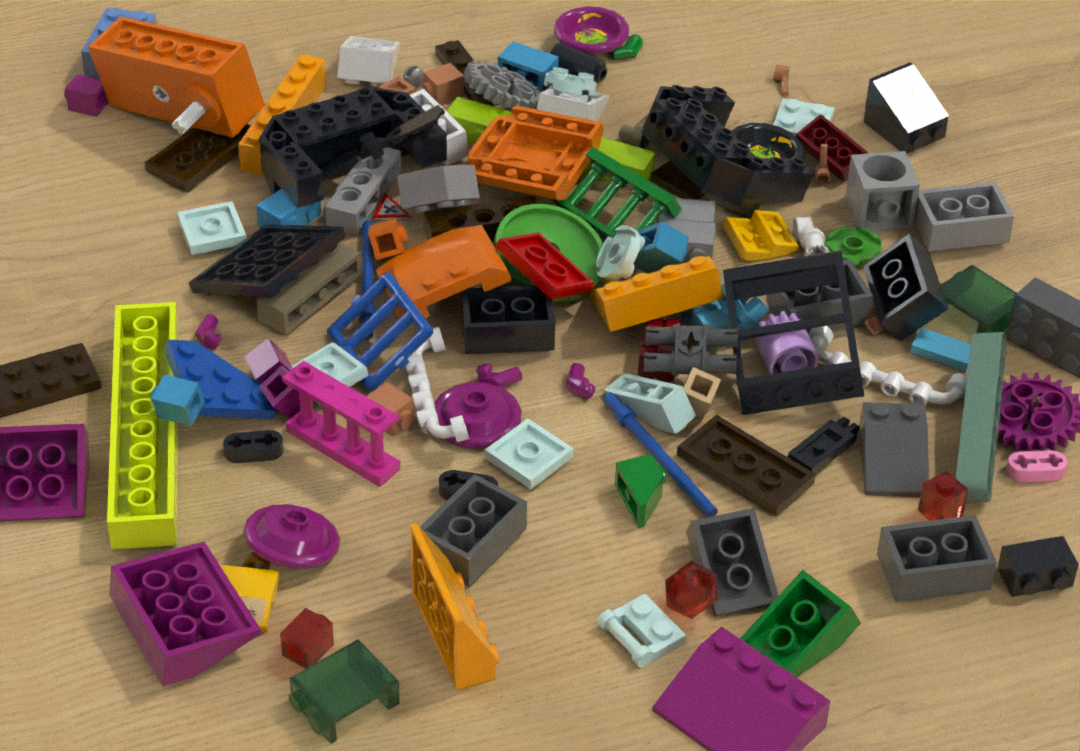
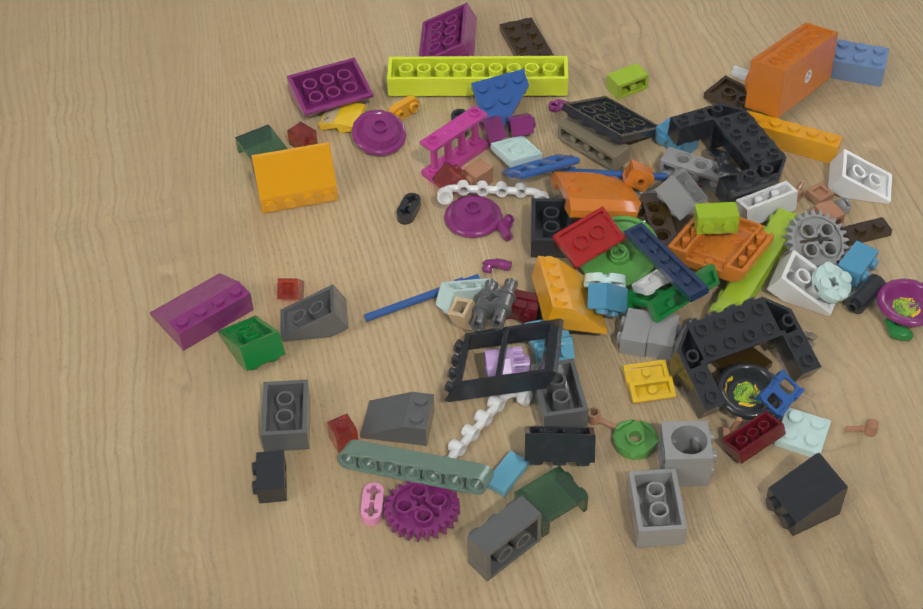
camera: 100 degrees right, 5 degrees up
(153, 260) = (627, 81): none -> lime brick
(177, 400) = (468, 71): dark azure brick -> none
(211, 228) = (660, 105): light aqua plate -> none
(223, 512) = (405, 107): none -> light orange plate
(410, 433) = (448, 175): none -> clear red brick
(476, 526) = (363, 199): dark grey brick -> none
(504, 144) = (716, 218): none -> lime brick
(529, 453) = (430, 234): light aqua plate -> none
(597, 183) = (666, 262): none -> dark blue plate
(608, 209) = (649, 283): none -> white plate
(640, 486) = (387, 281): green slope -> none
(648, 624) = (269, 281): light aqua plate -> none
(746, 465) = (401, 337): dark brown plate -> none
(773, 123) = (786, 399): none -> blue piece
(810, 238) = (640, 407): white connector -> none
(825, 444) = (410, 378): black hinge -> none

